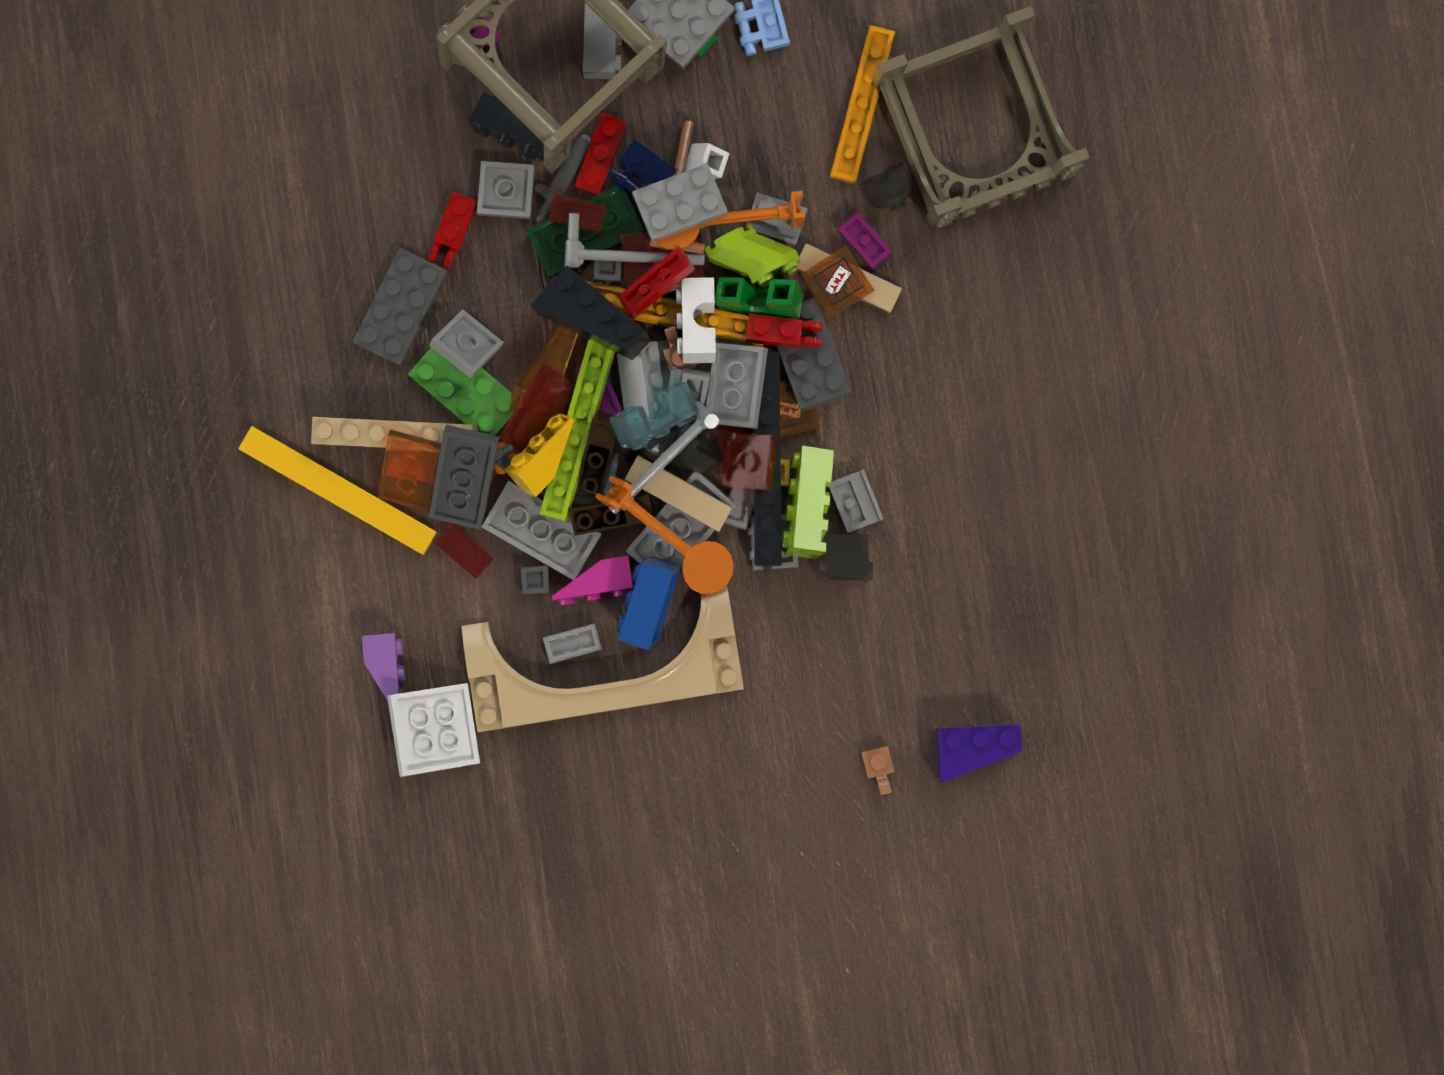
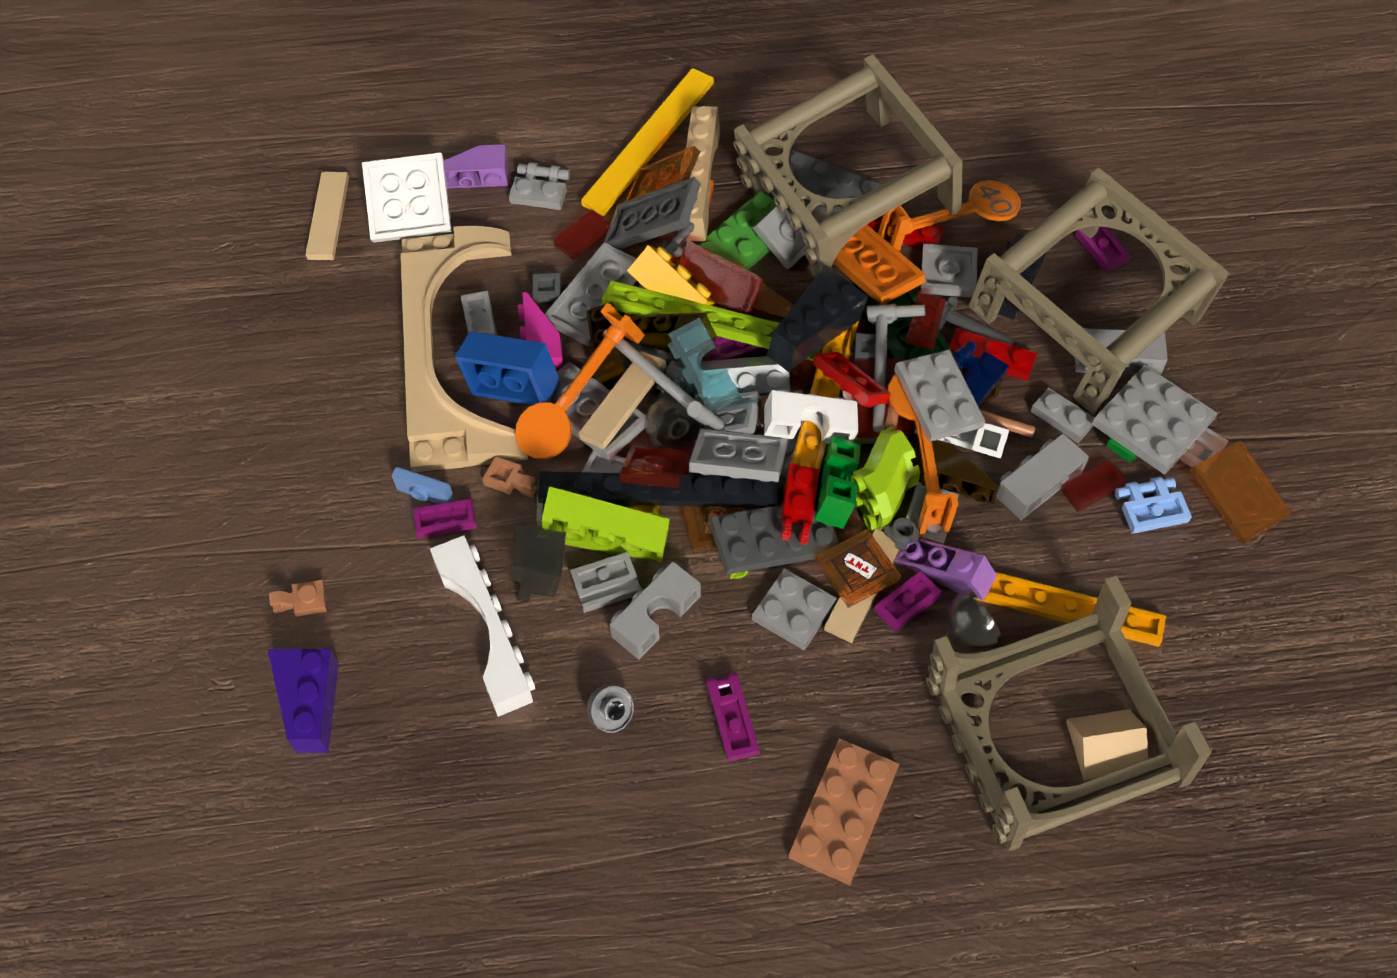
camera: 95 degrees right, 25 degrees down
(386, 370) = (830, 233): none -> dark tan arch
(410, 599) = (536, 192): none -> light grey plate
(414, 144) = (987, 198): none -> orange piece
(444, 813) = (327, 216): none -> tan tile
(501, 265) = (877, 266): none -> orange plate
(667, 94) = (1063, 415): none -> light grey plate
(737, 118) = (1041, 476): none -> light grey brick
(739, 193) = (958, 473): none -> dark brown slope
(741, 73) = (1093, 485): none -> clear red tile
(751, 600) = (506, 476): none -> nougat plate
(767, 674) = (422, 487): none -> medium blue plate
(796, 650) = (444, 518): none -> magenta plate
(803, 236) = (905, 527): none -> dark grey plate
(831, 207) = (949, 566): none -> medium lavender slope
(861, 445) = (670, 590): none -> light grey arch
(872, 338) = (794, 609): none -> light grey plate
(950, 581) = (503, 677): none -> white arch
(975, 489) = (610, 708): none -> flat silver plate
(976, 388) = (732, 717): none -> magenta plate
(985, 83) = (1108, 742): none -> tan slope
(1050, 297) = (844, 811): none -> nougat plate

